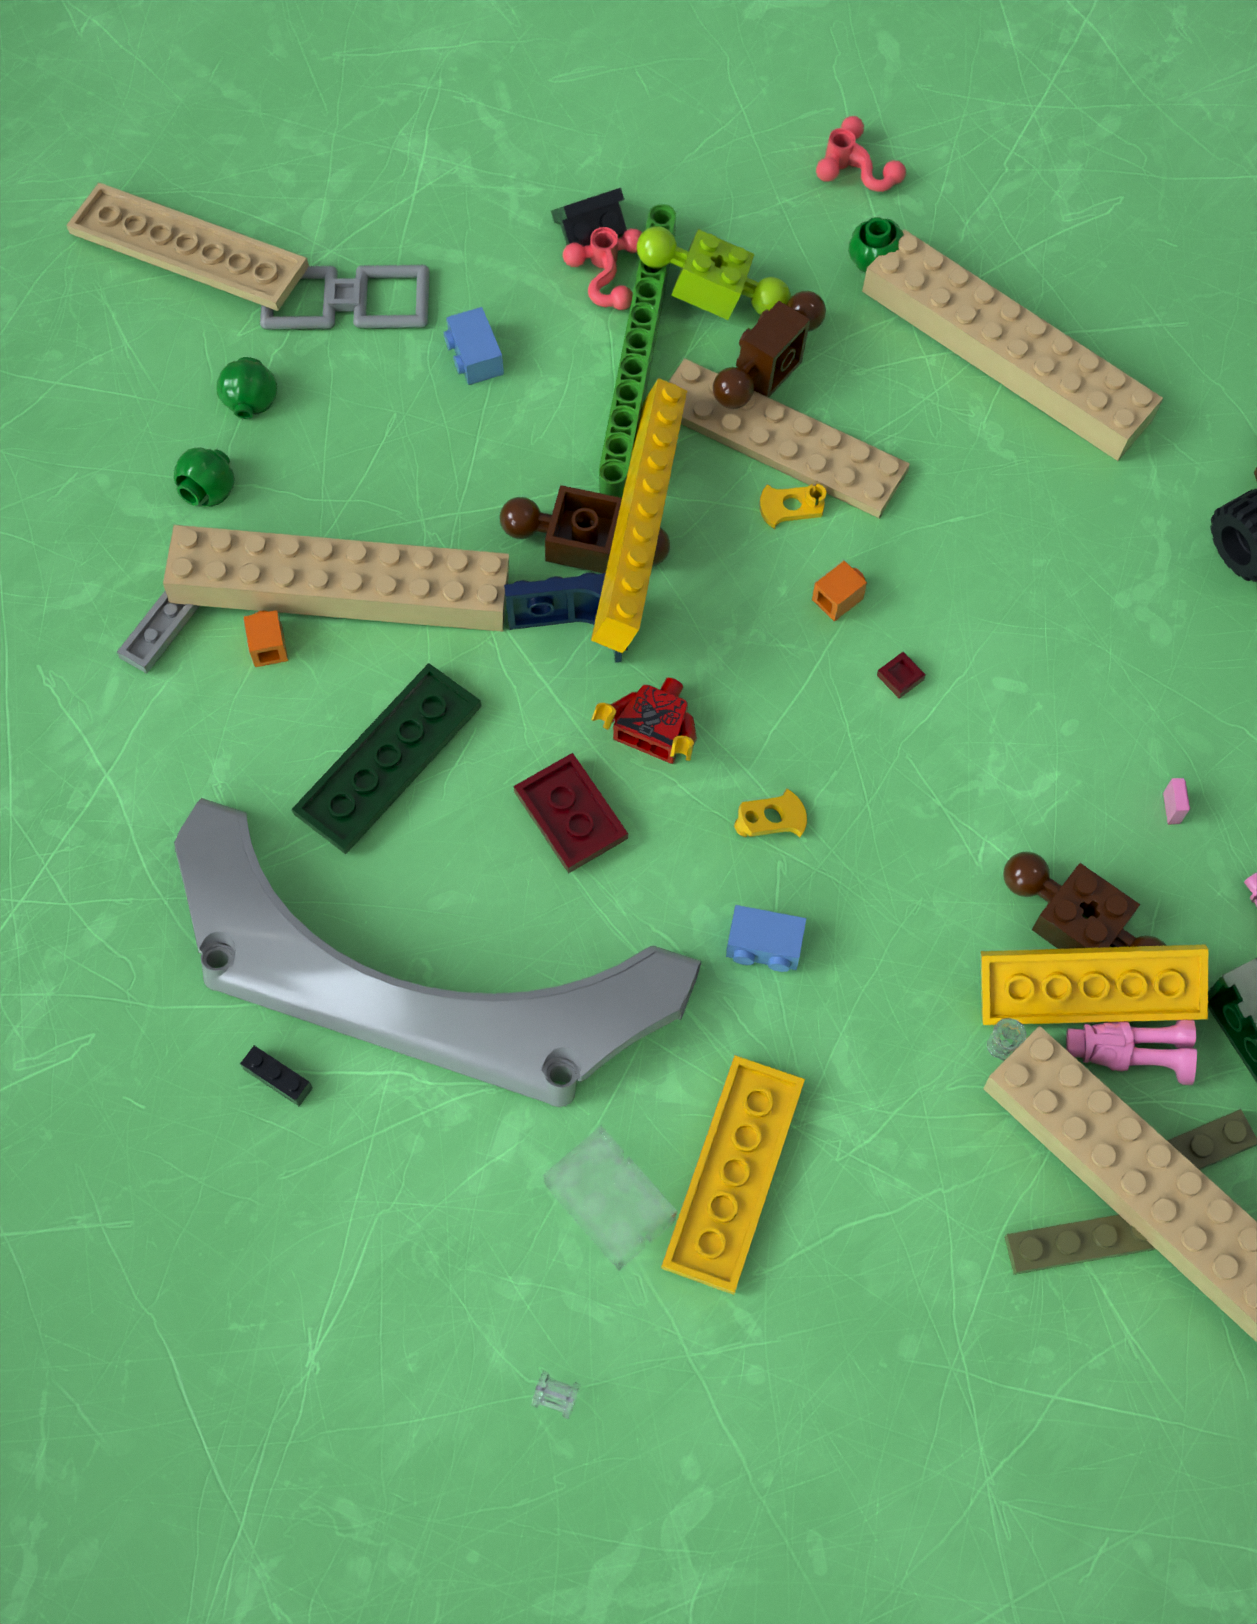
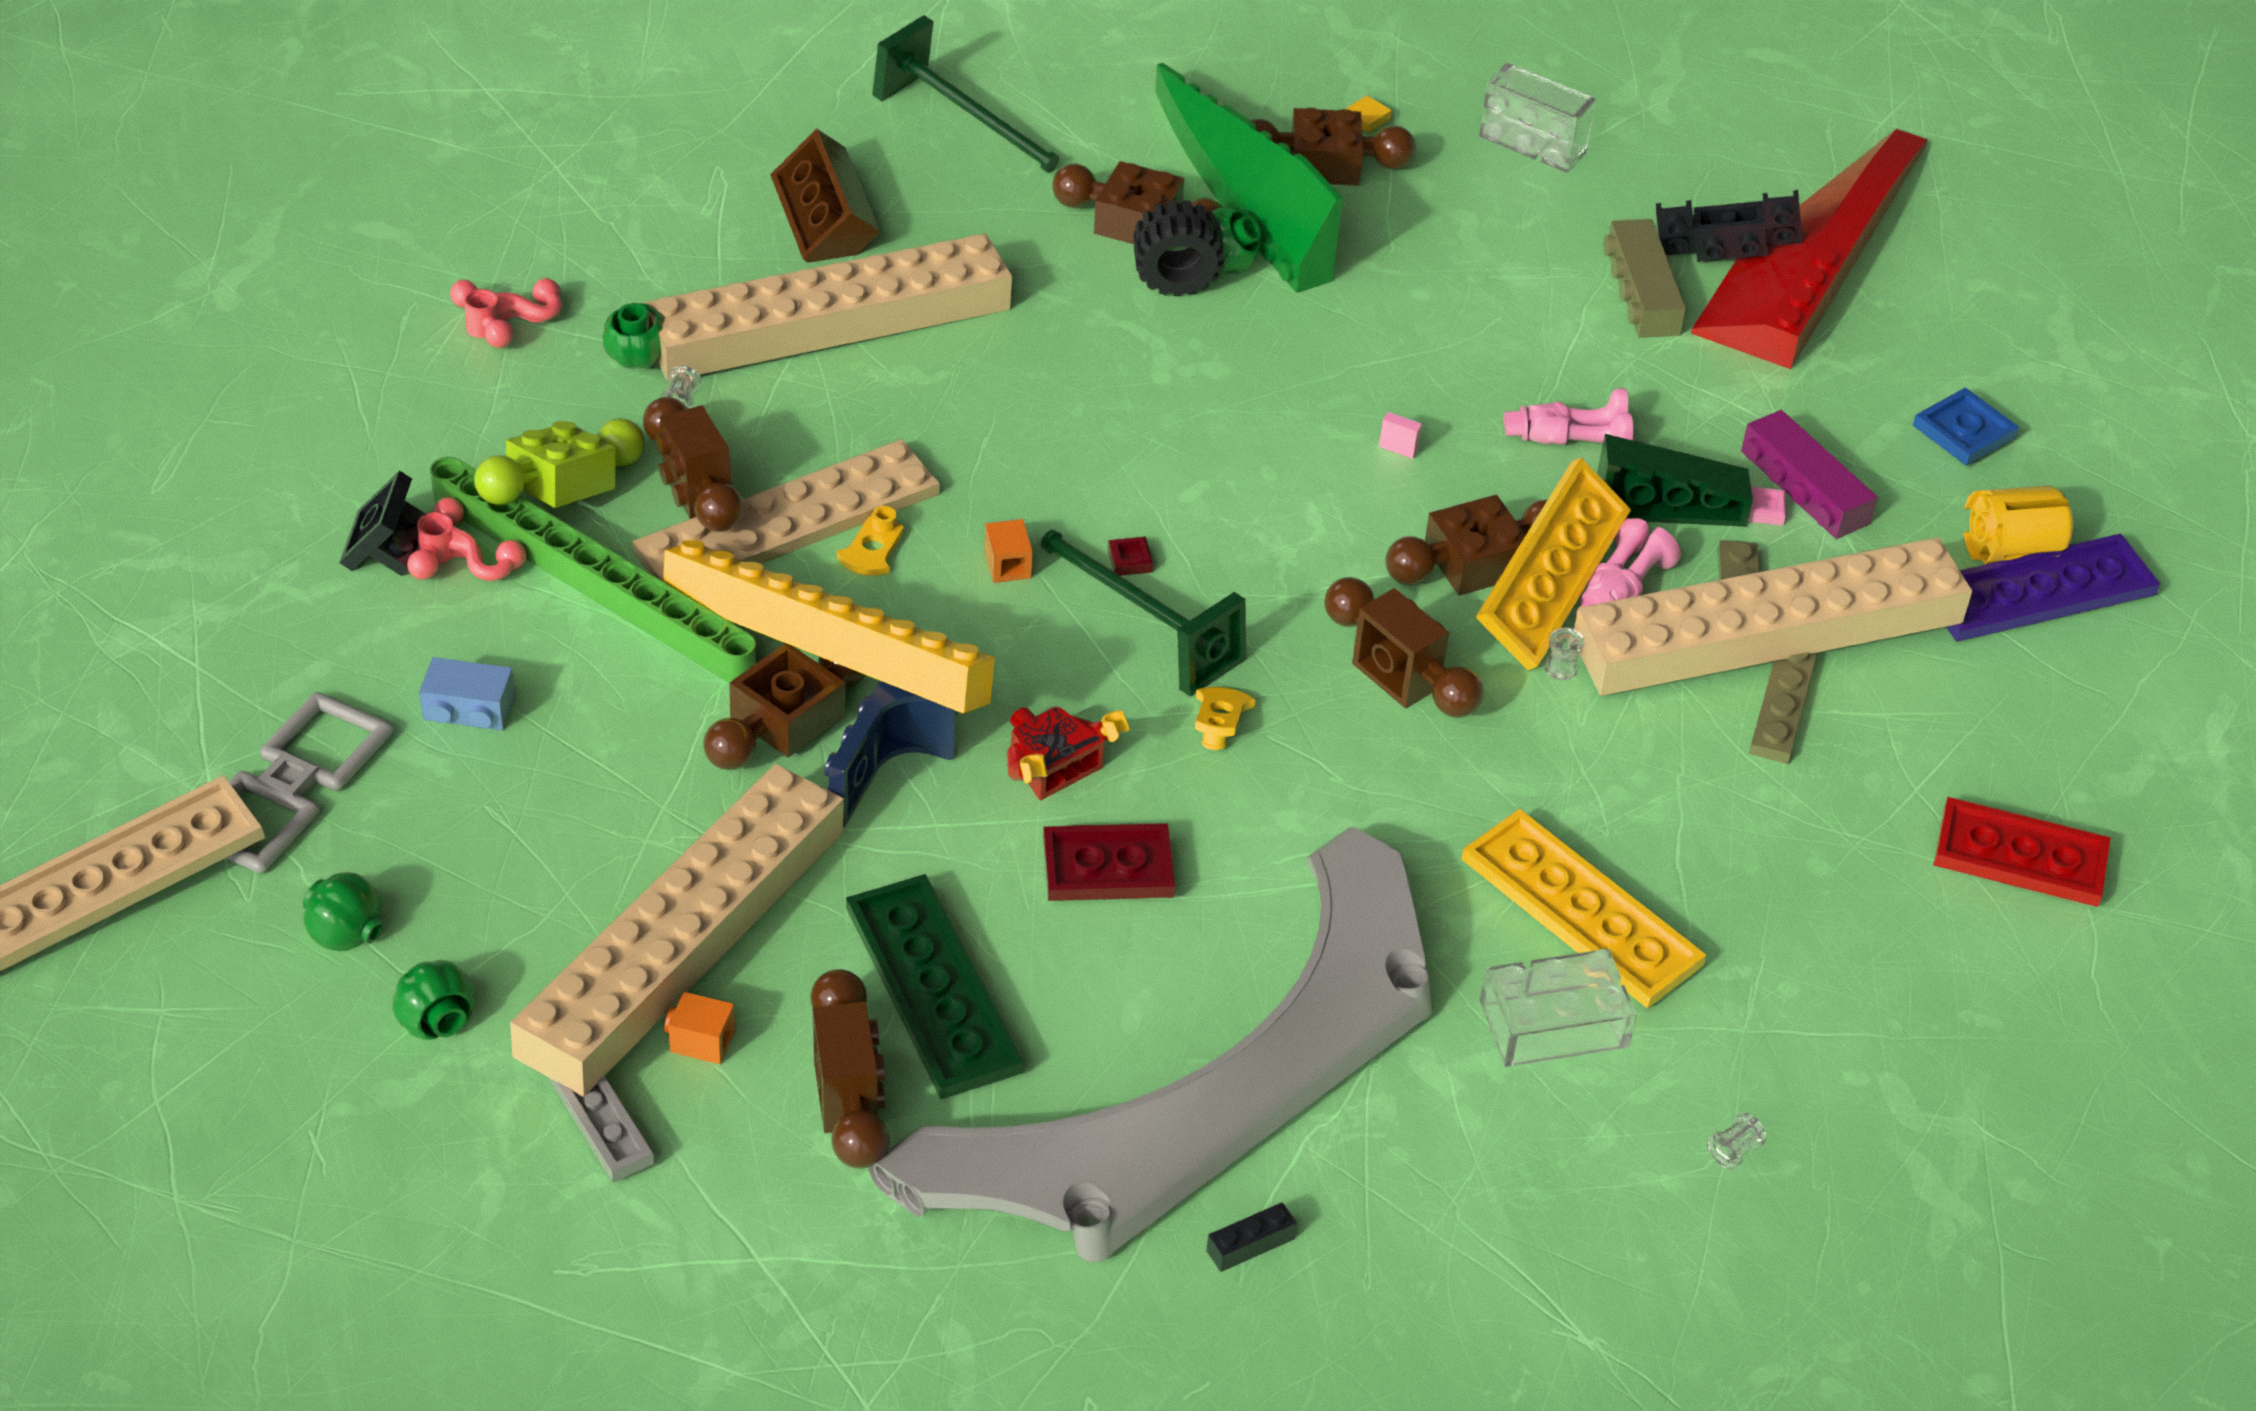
camera: 65 degrees left, 20 degrees down
(265, 741) = (848, 1069): none -> reddish brown brick
(765, 938) = (1352, 773): medium blue brick -> none
(825, 771) = (1206, 644): none -> dark green tile
(855, 303) = (686, 387): none -> clear bush
(914, 913) = (1402, 648): none -> reddish brown brick
(1028, 1520) = (2022, 851): none -> red plate
(1131, 280) = (824, 200): none -> reddish brown slope

